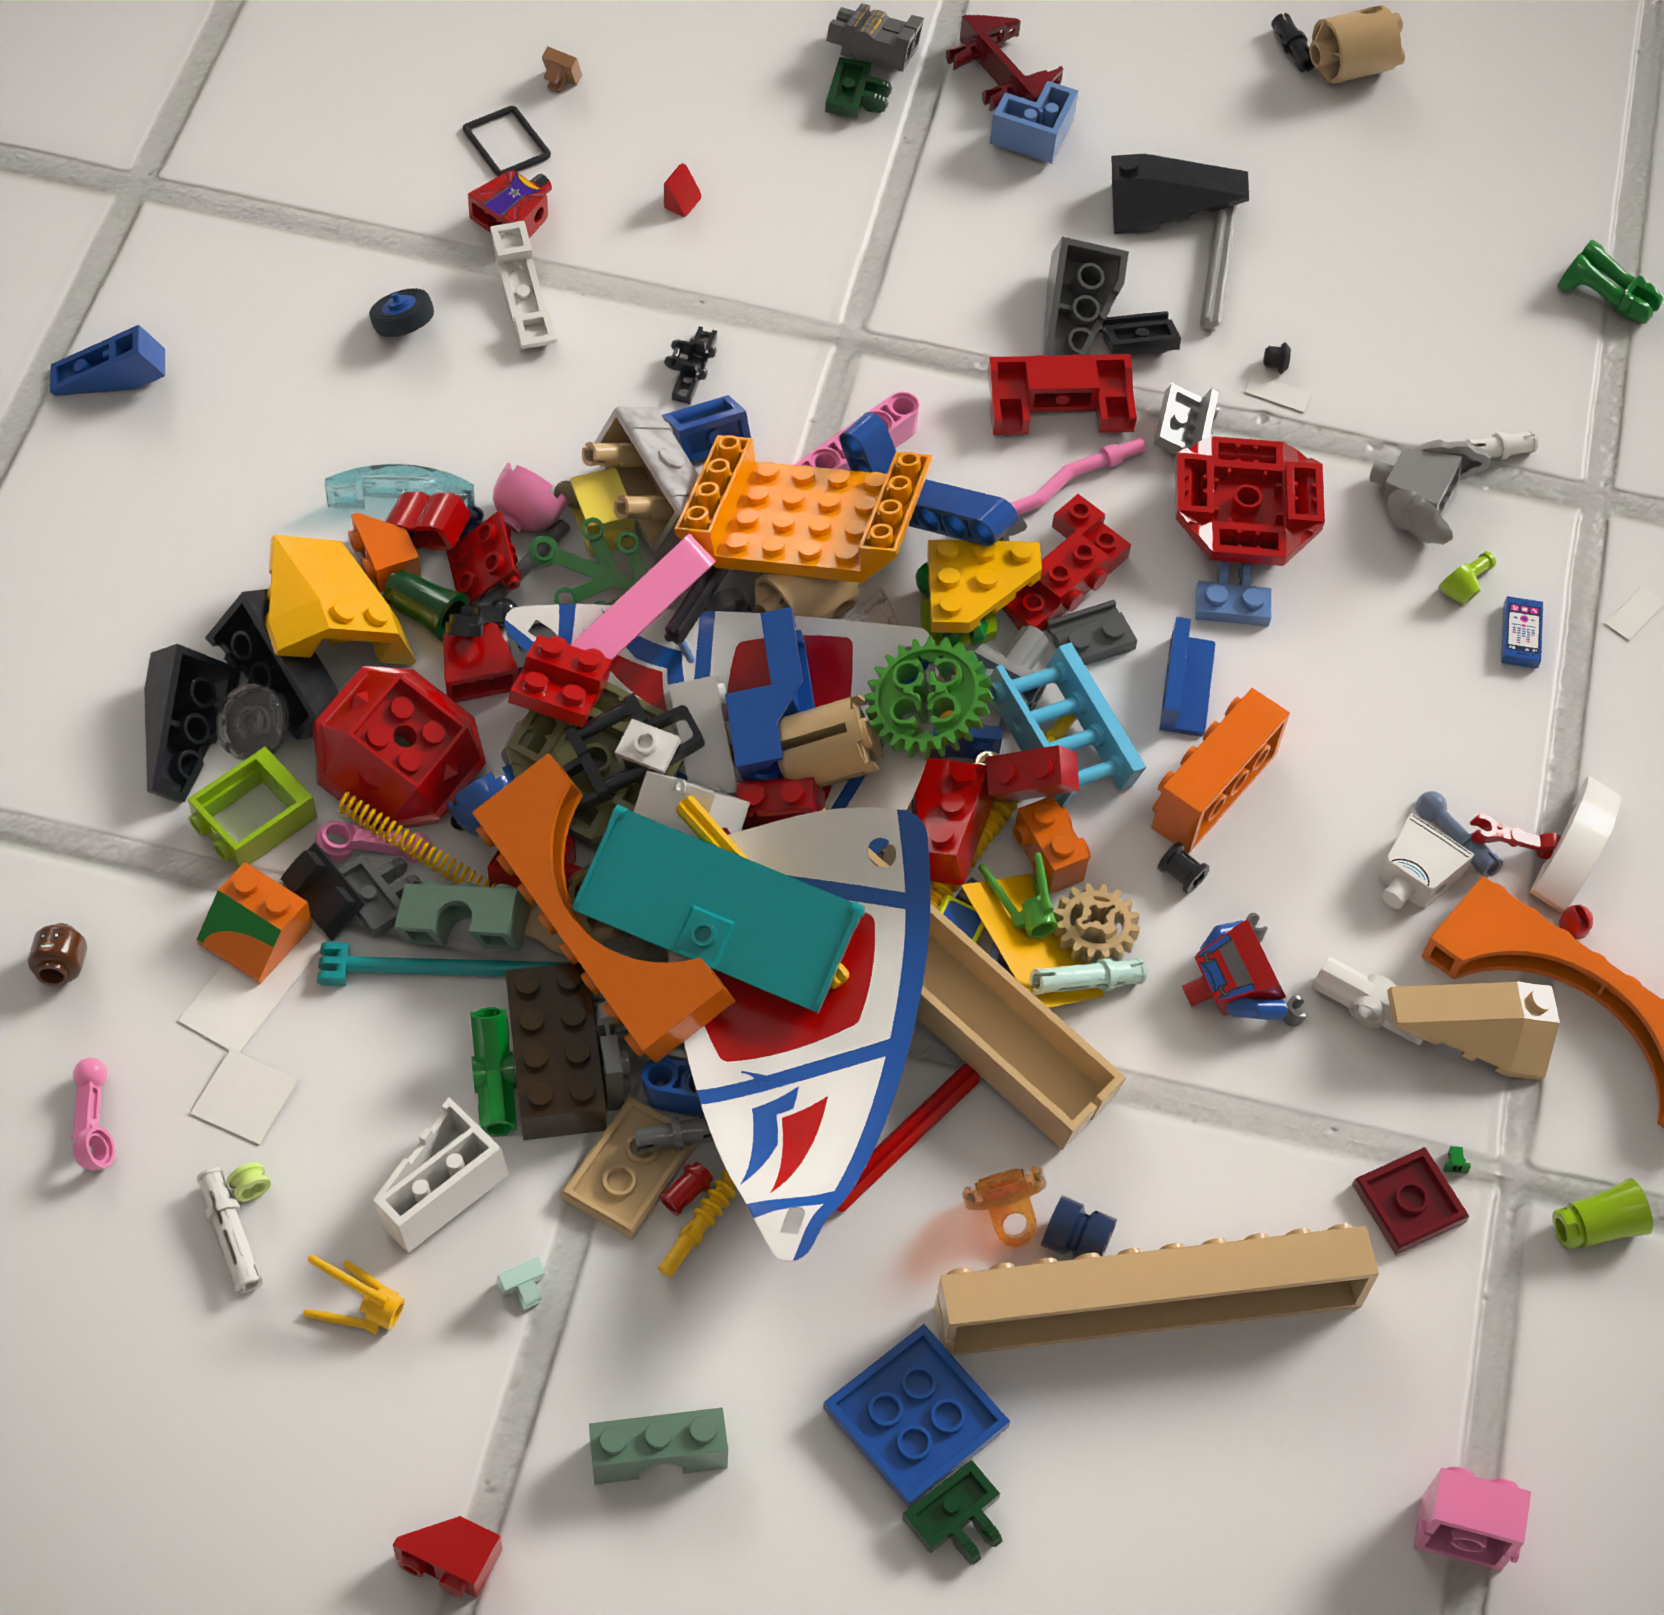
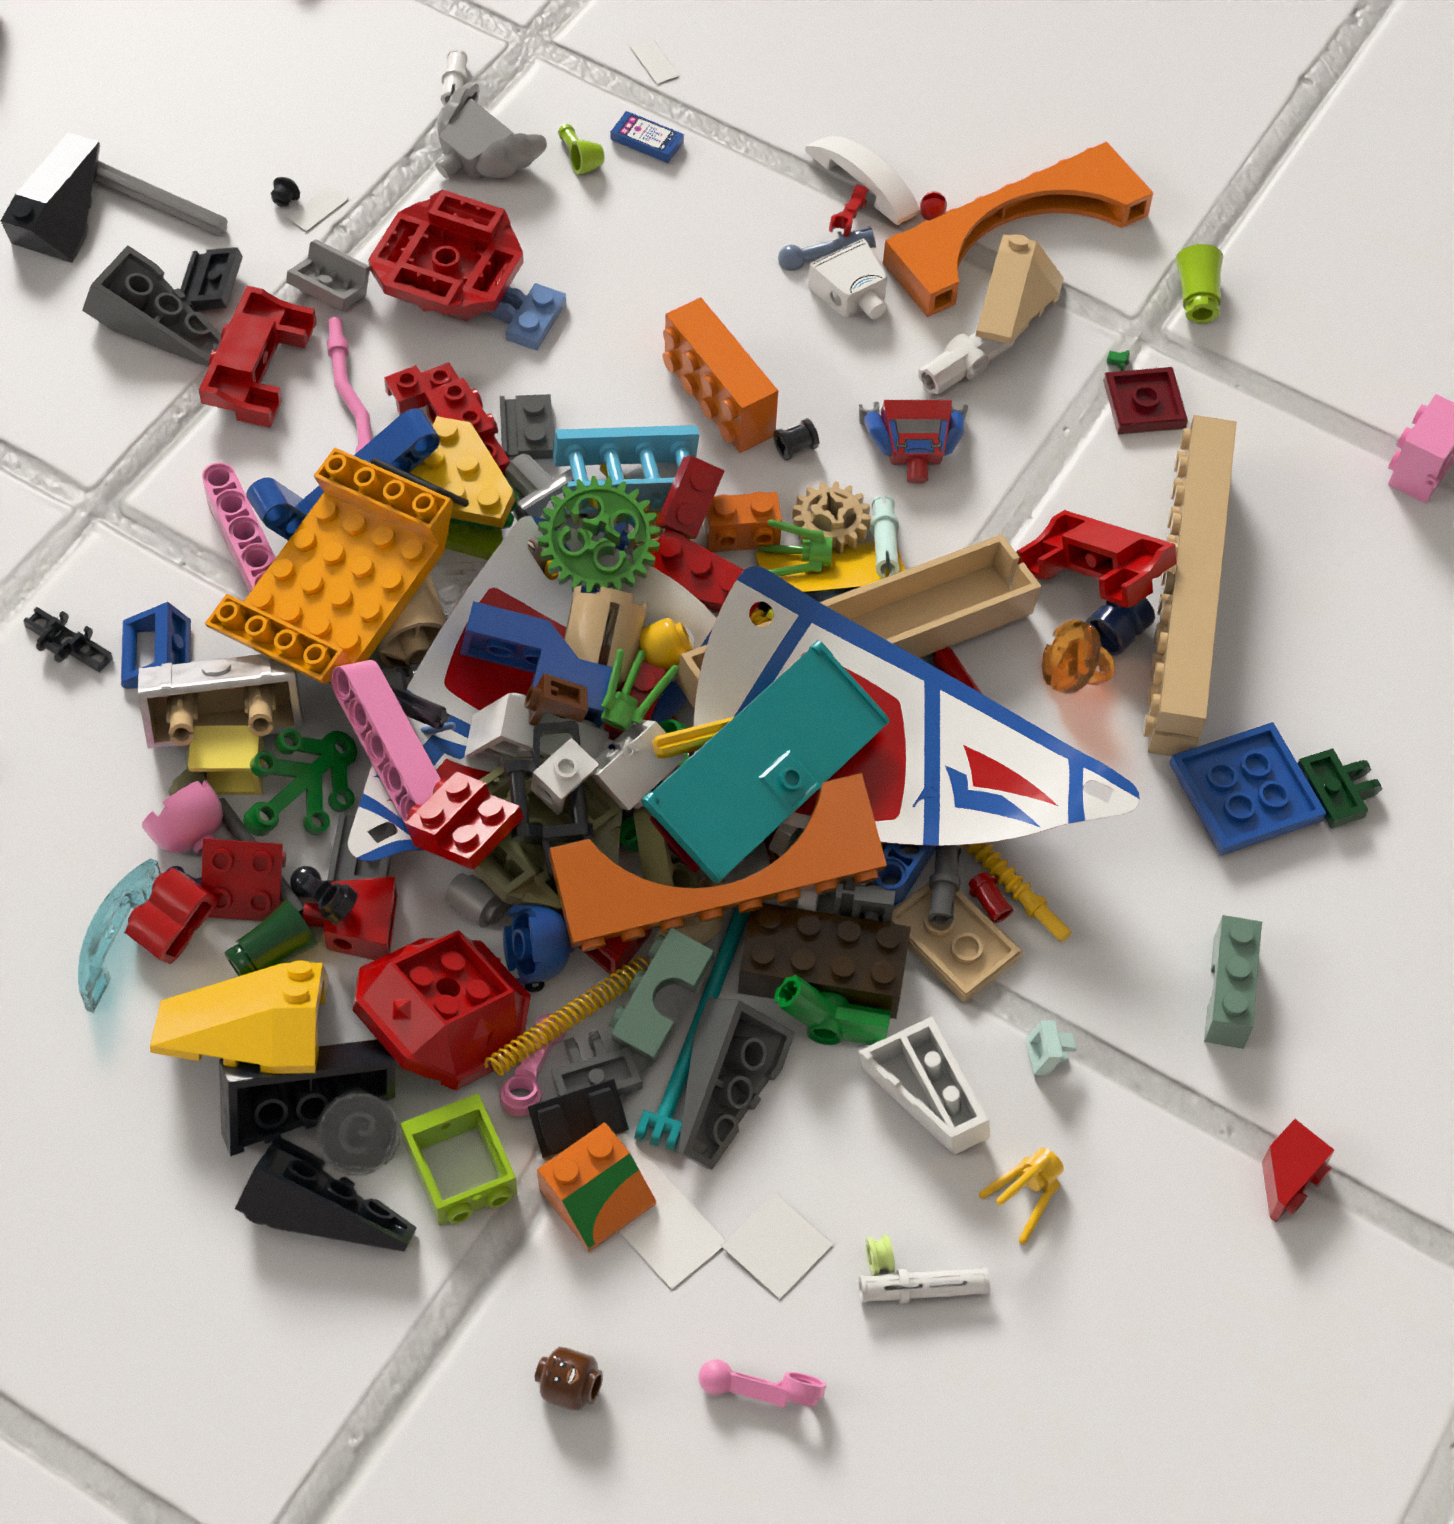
camera: 70 degrees left, 0 degrees up
(383, 548) = (185, 965): orange slope -> none
(405, 1001) = (729, 1066): none -> dark grey wedge
(717, 713) = (557, 697): none -> reddish brown bracket
(736, 774) = (621, 708): none -> bright green plant
(843, 791) = (664, 643): none -> yellow head
(931, 582) = (455, 498): none -> black piece
(1150, 1186) = (1114, 555): none -> red bracket
(1187, 682) = (603, 376): blue panel -> none

